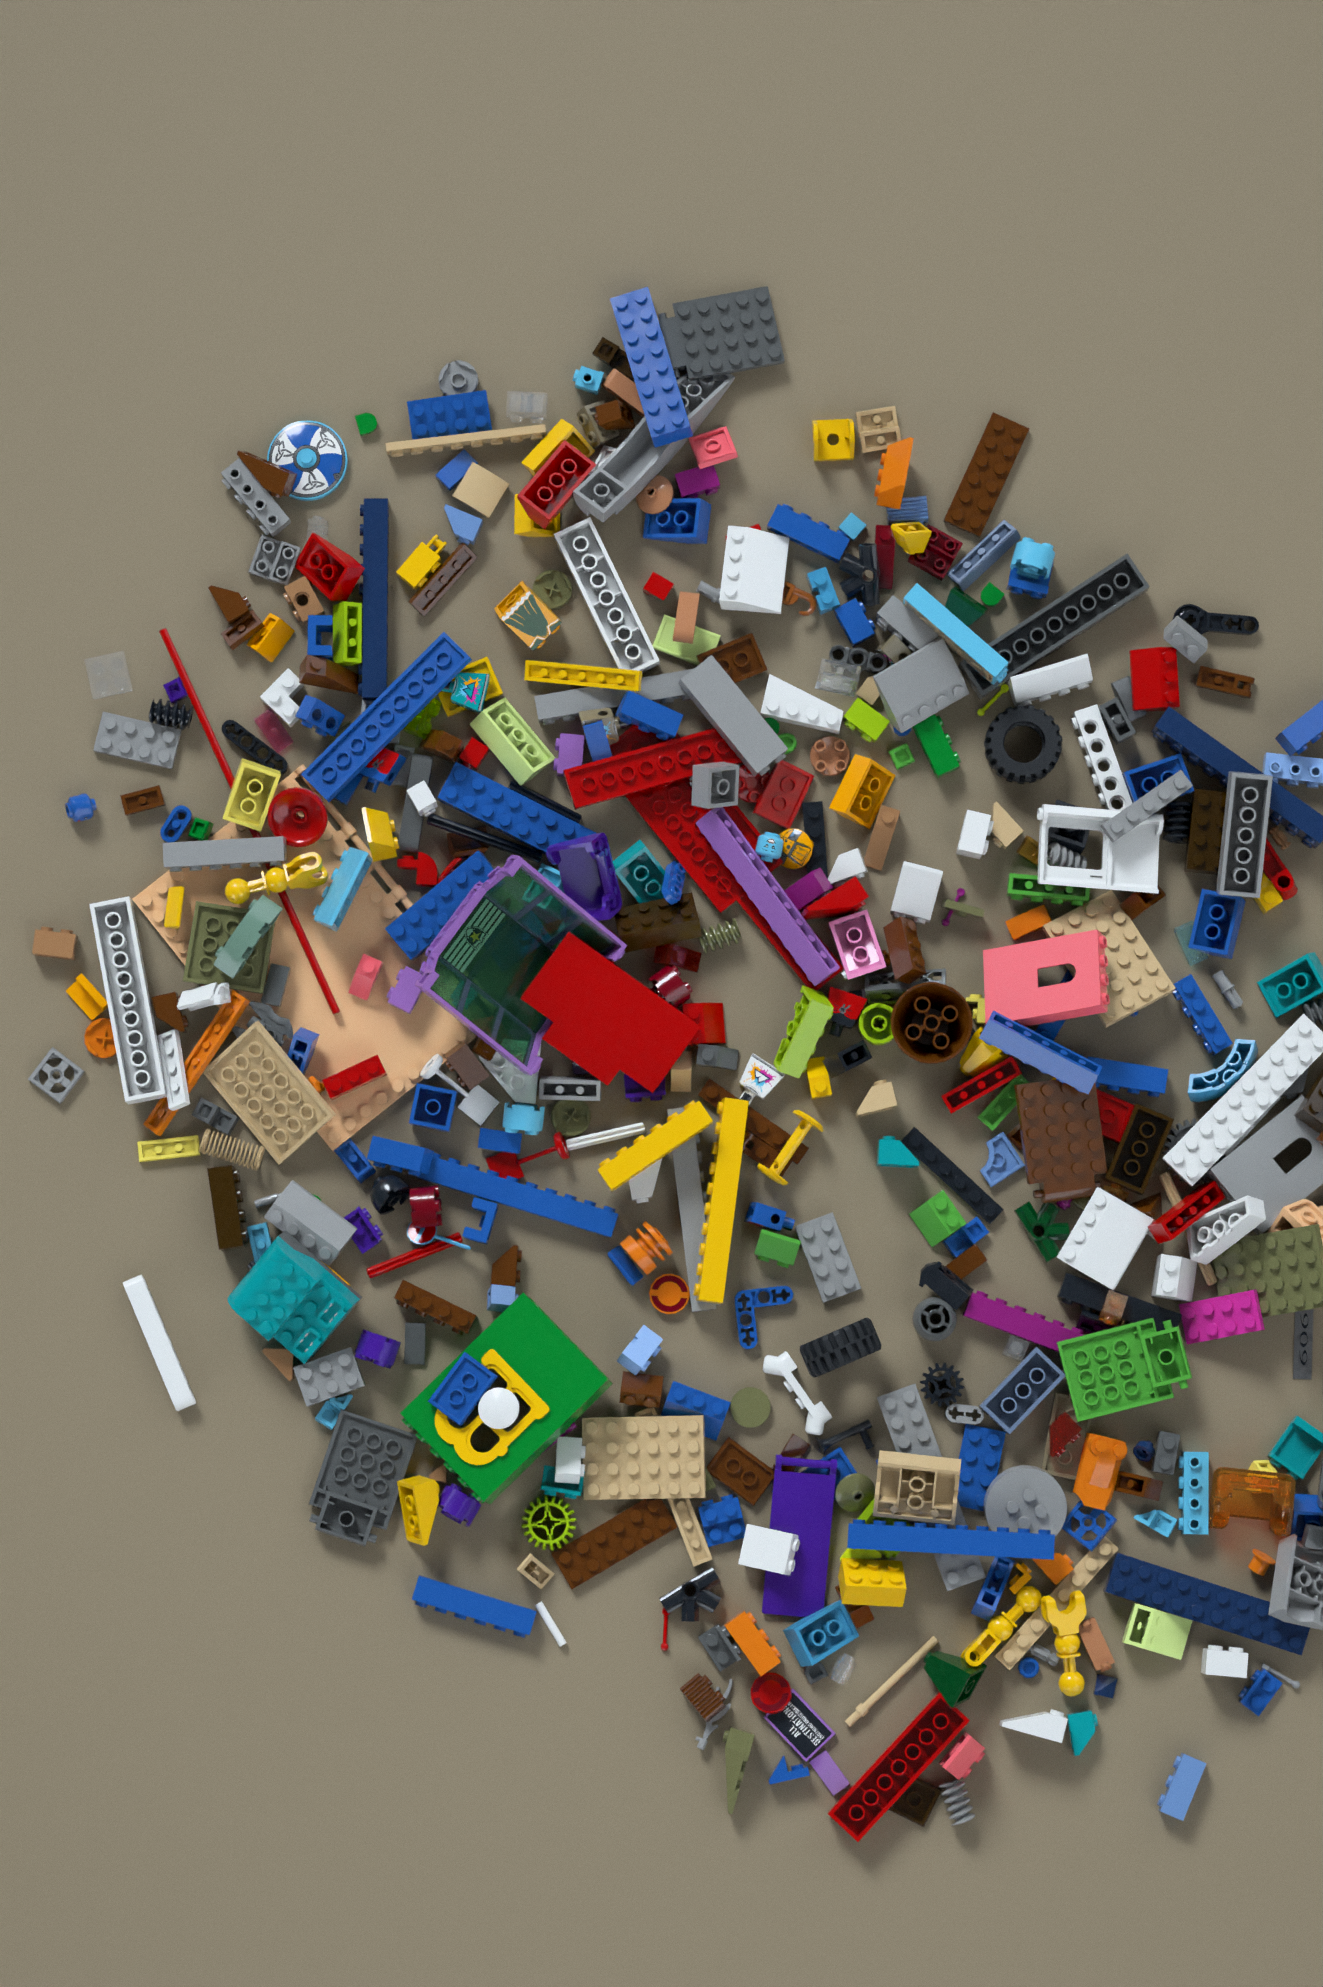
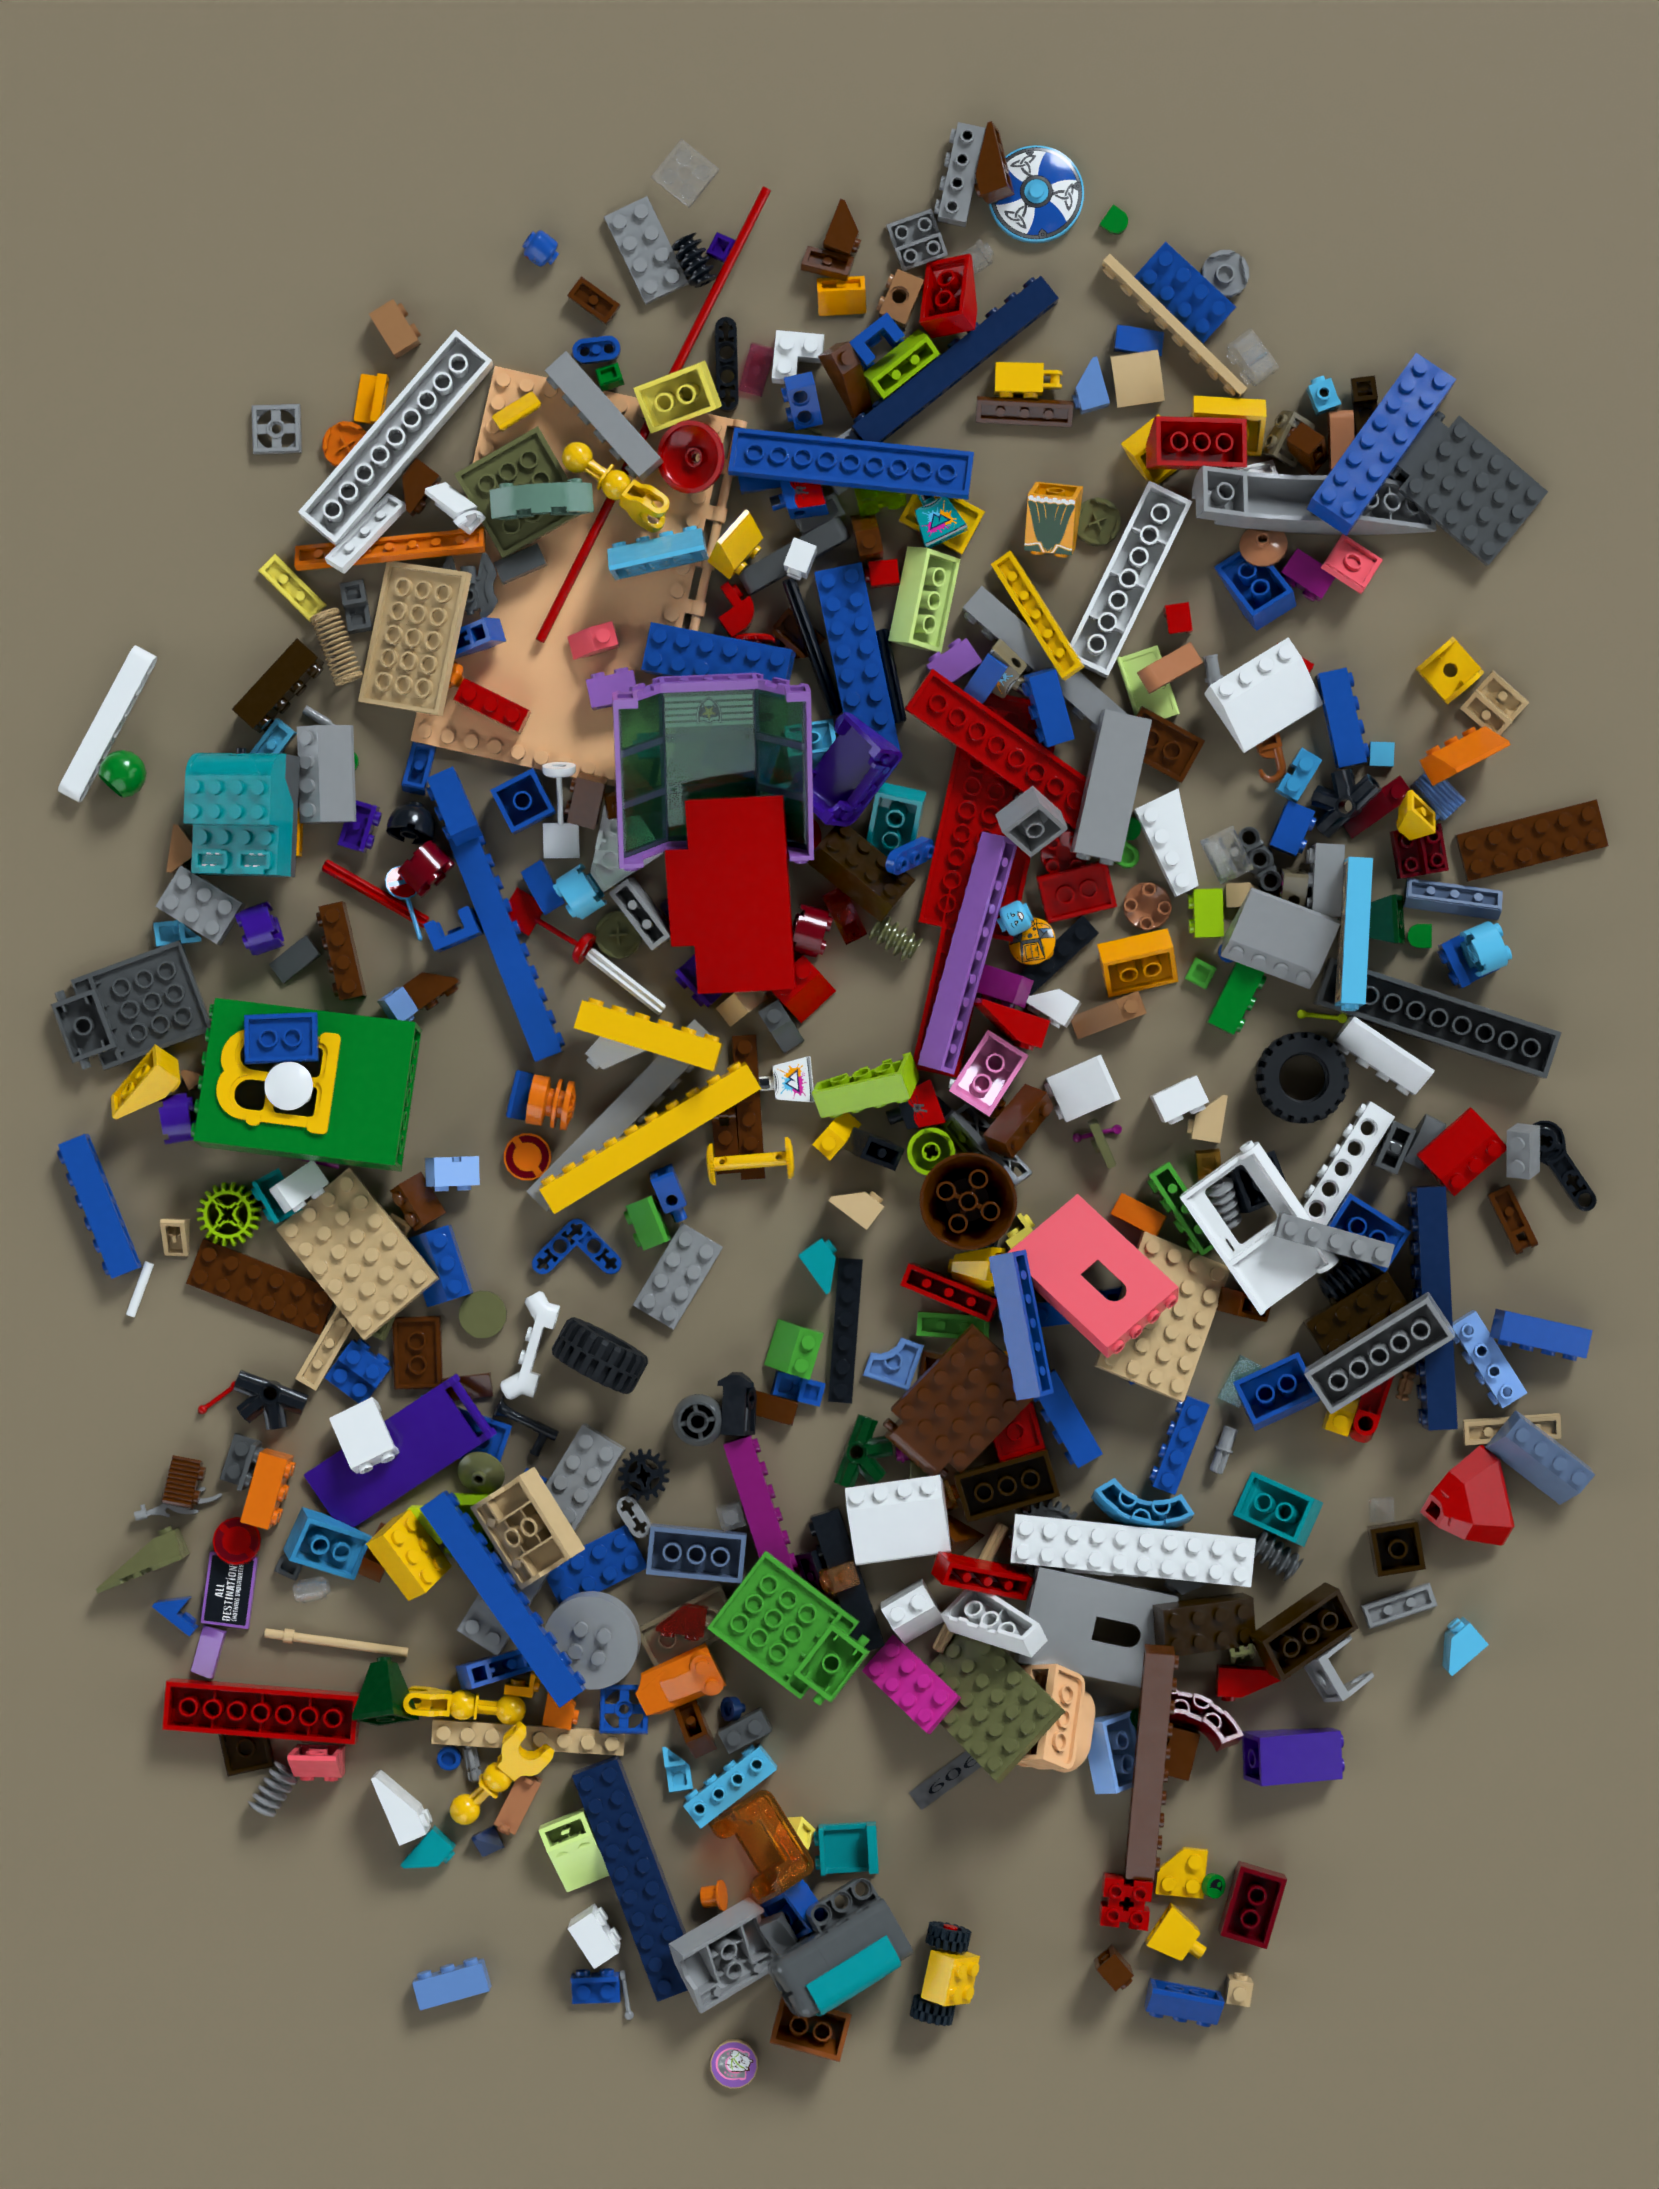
camera: 50 degrees right, 5 degrees up
(200, 1357) = (123, 773): none -> green helmet

